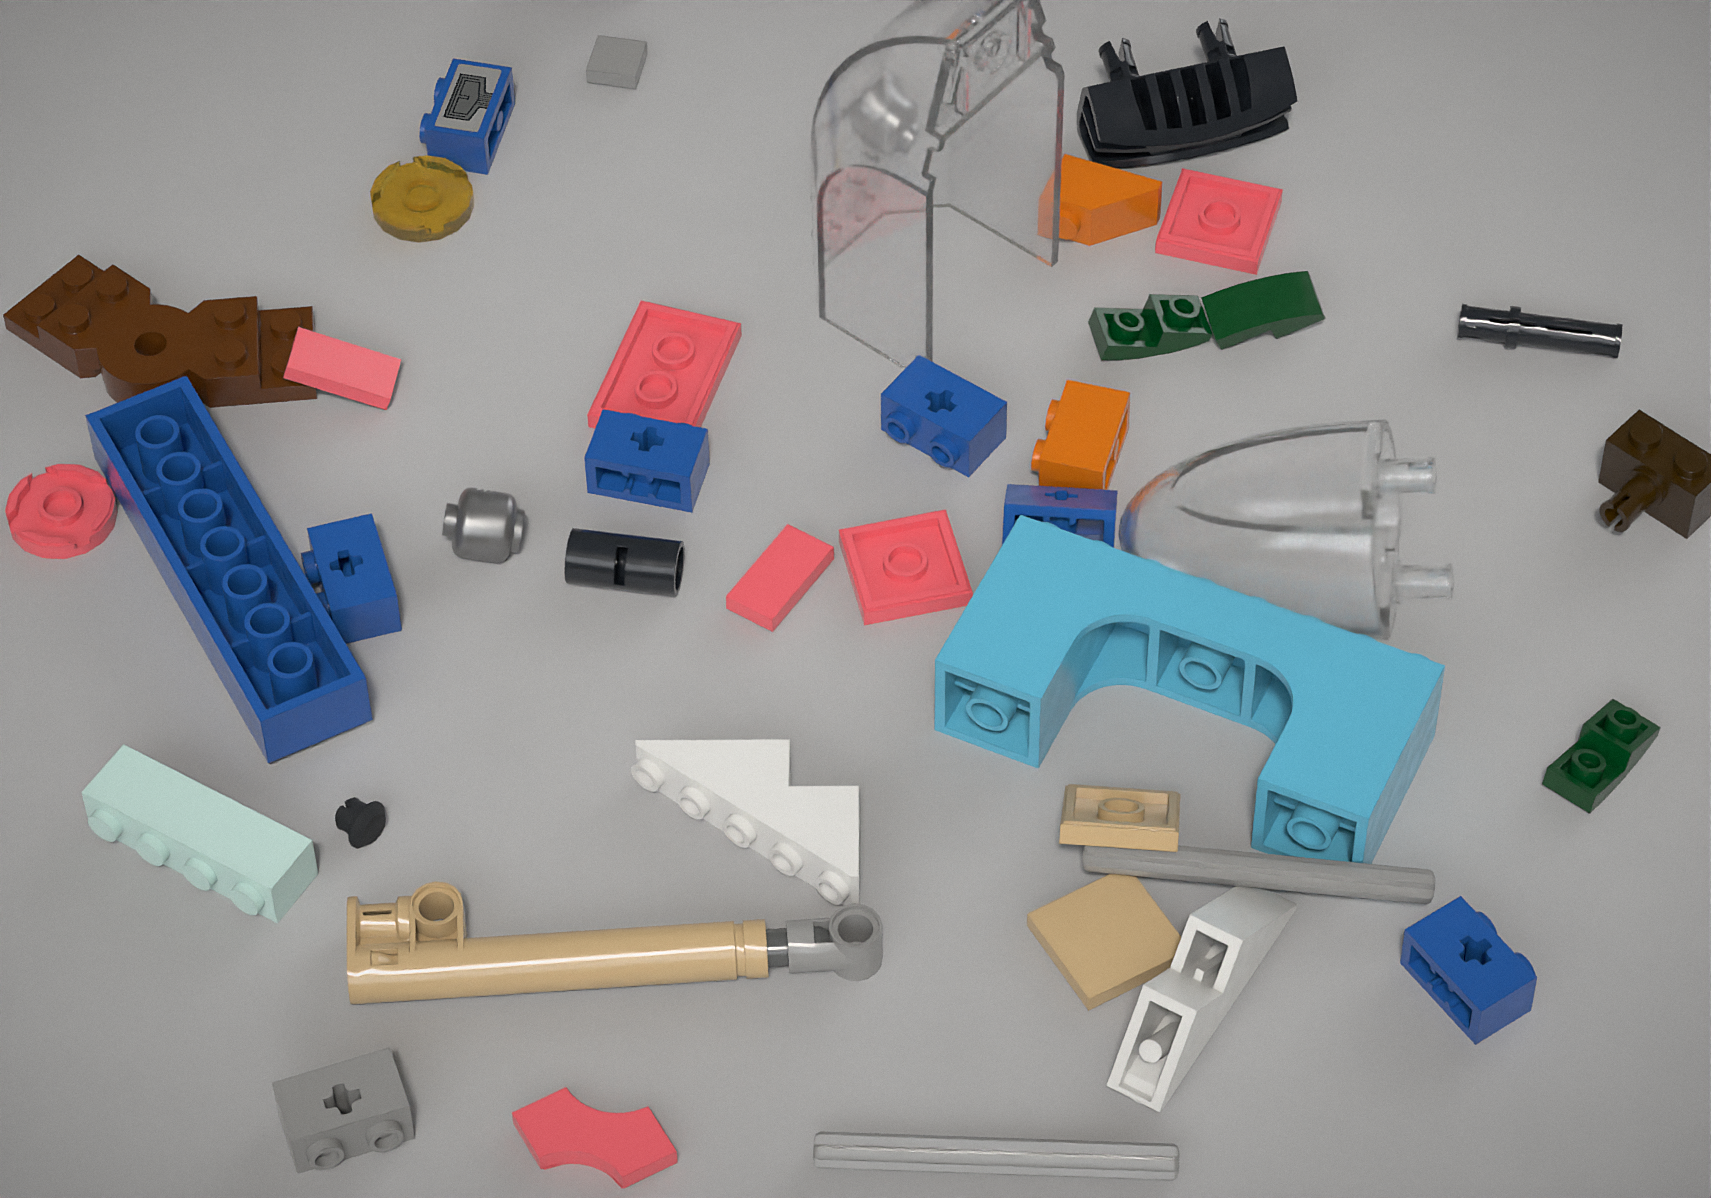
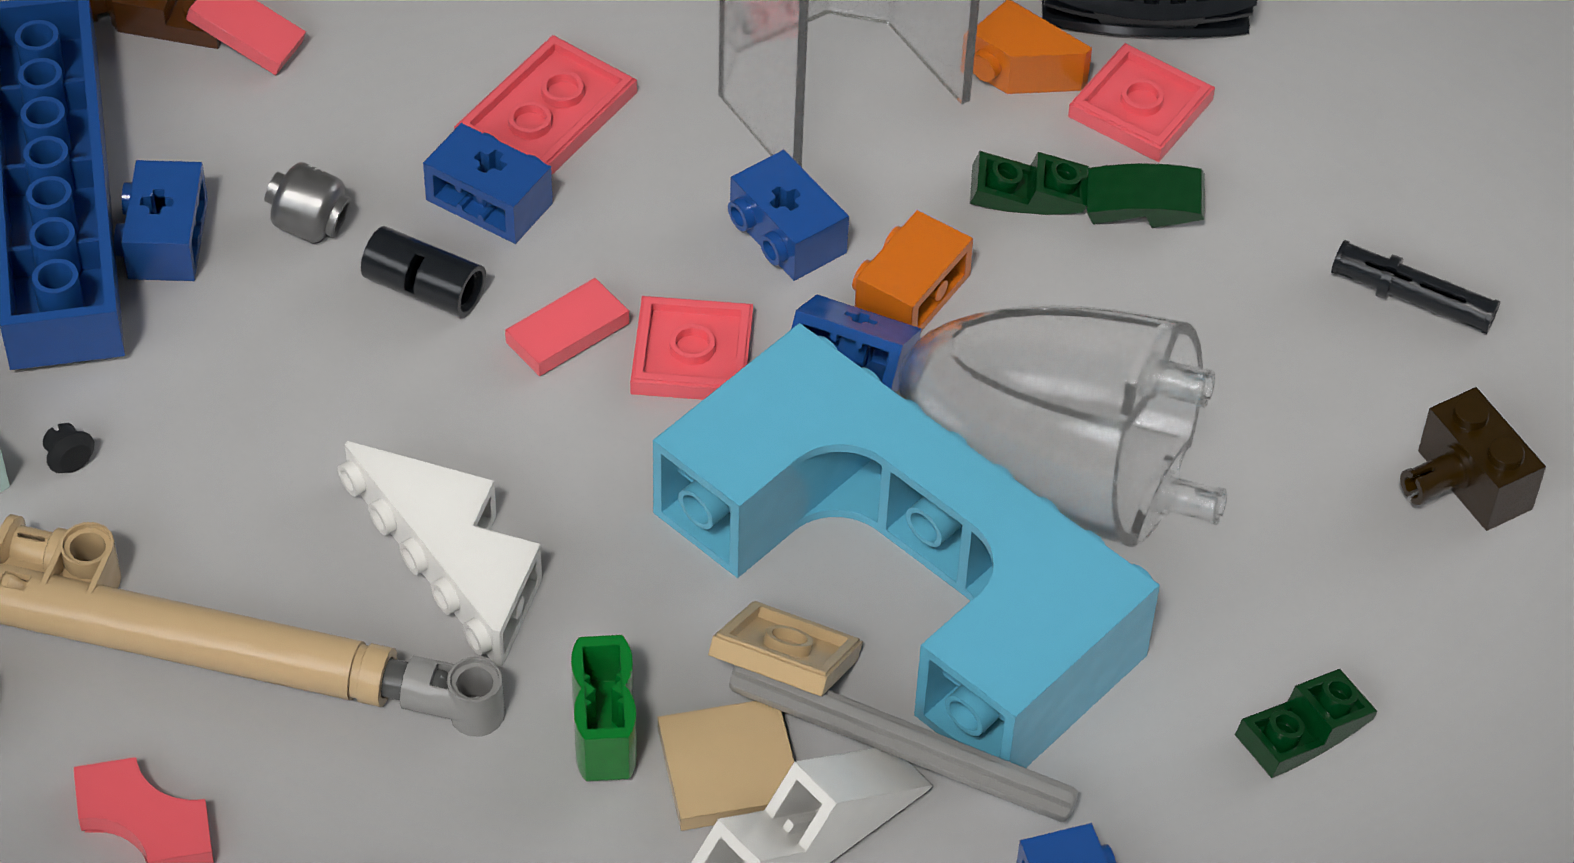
camera: 15 degrees right, 0 degrees up
(981, 918) = (604, 707): none -> green brick

